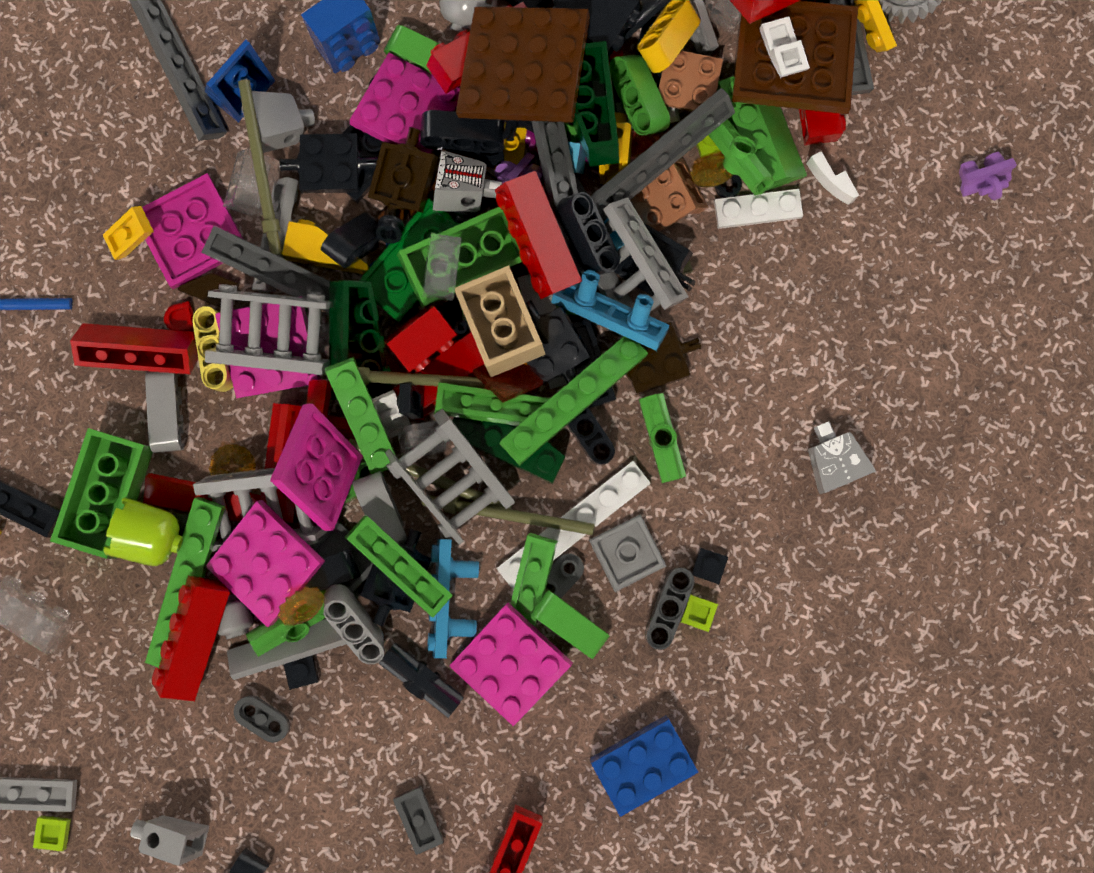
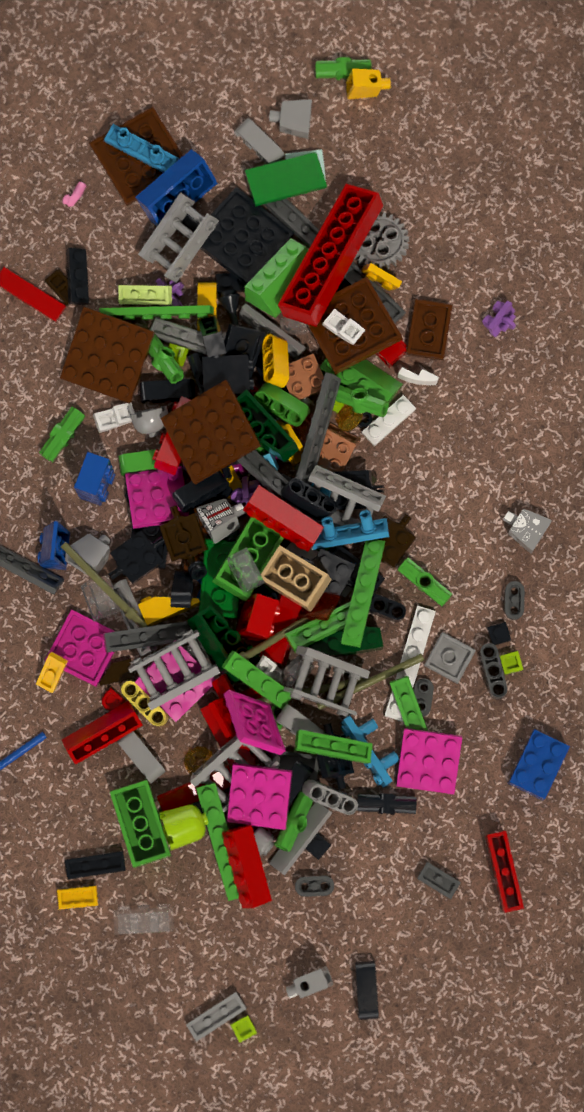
camera: 30 degrees left, 5 degrees down
(301, 606) = (296, 804): clear yellow gear -> none
(410, 401) = (276, 655): black plate -> none
(570, 624) = (446, 716): bright green beam -> none
(757, 538) = (514, 600): none -> dark grey plate
(887, 130) = (429, 329): none -> reddish brown plate

